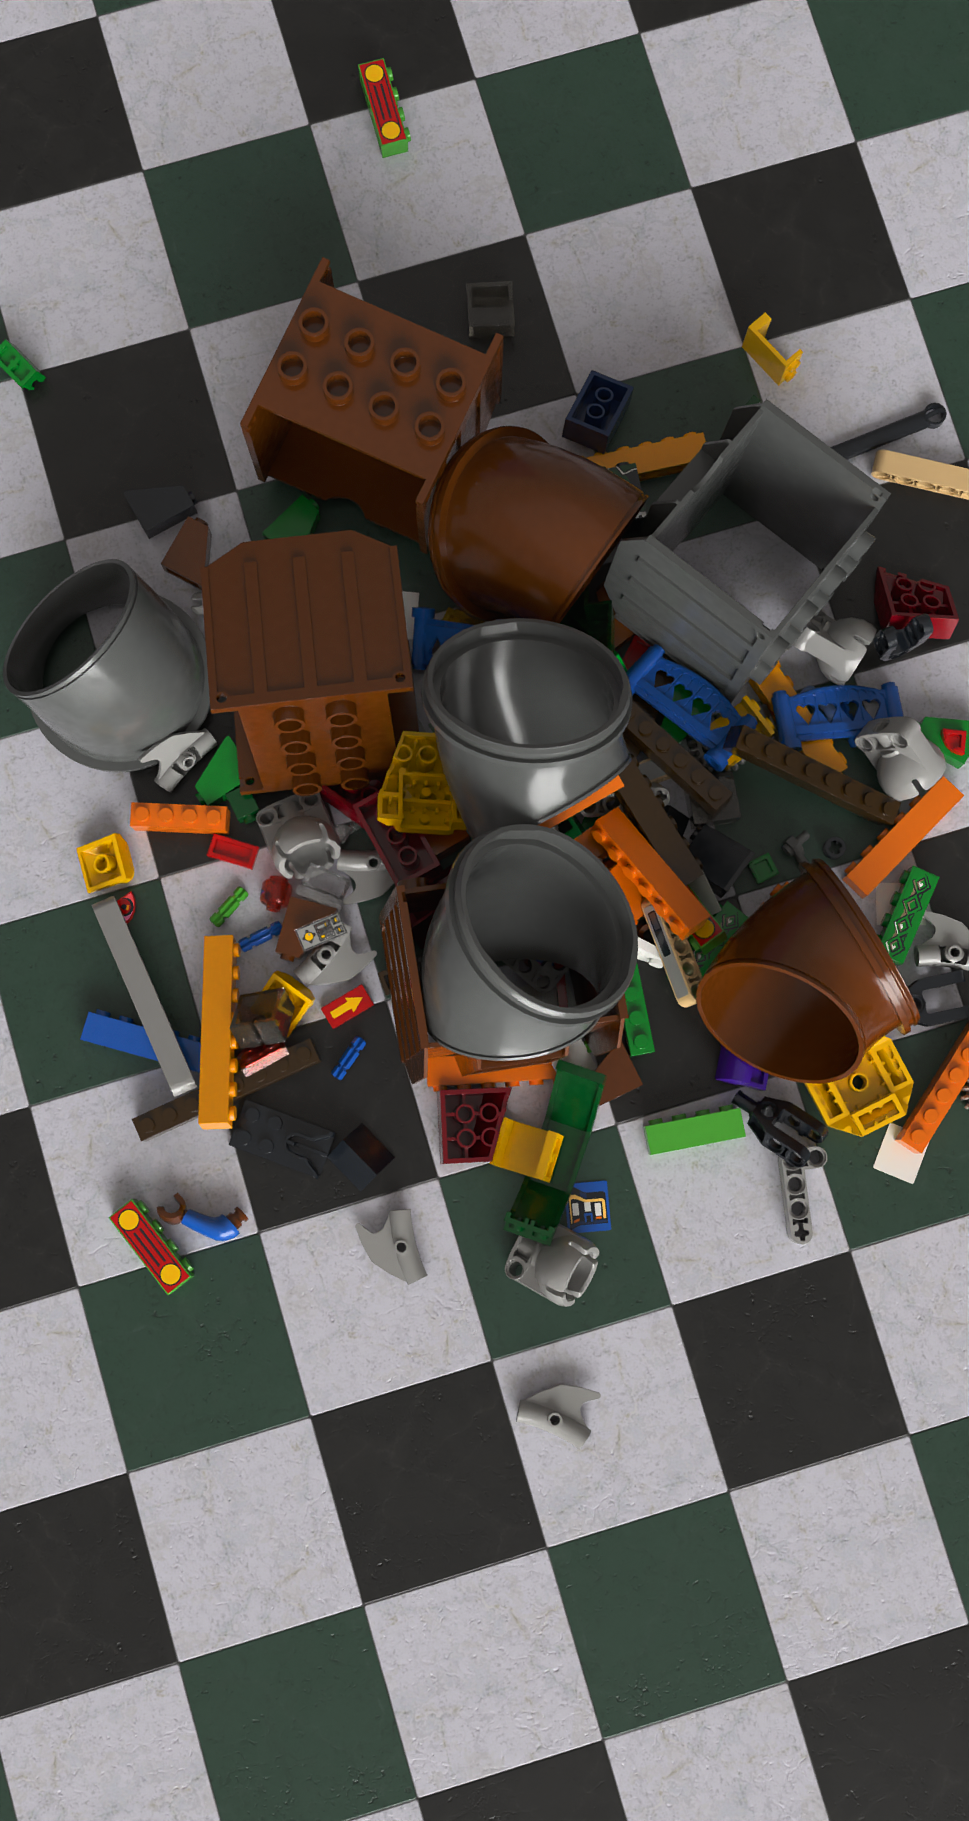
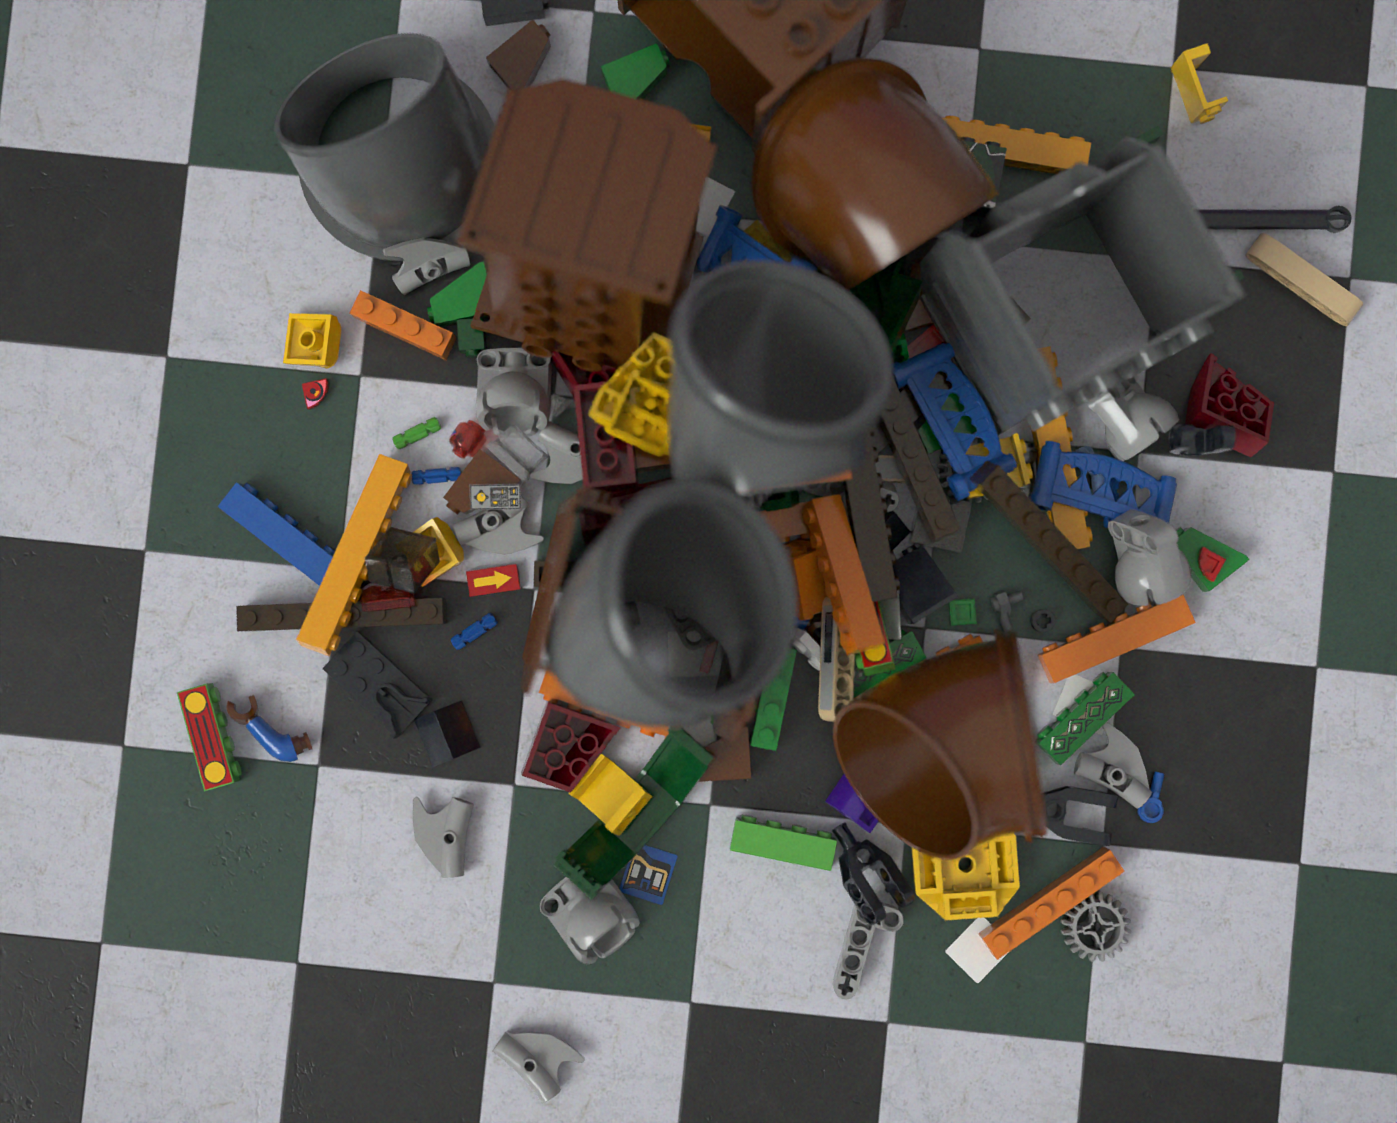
camera: 30 degrees right, 5 degrees up
(144, 996) = (296, 489): light grey beam -> none
(233, 851) = (443, 379): red tile -> none
(597, 411) = (992, 77): dark blue brick -> none

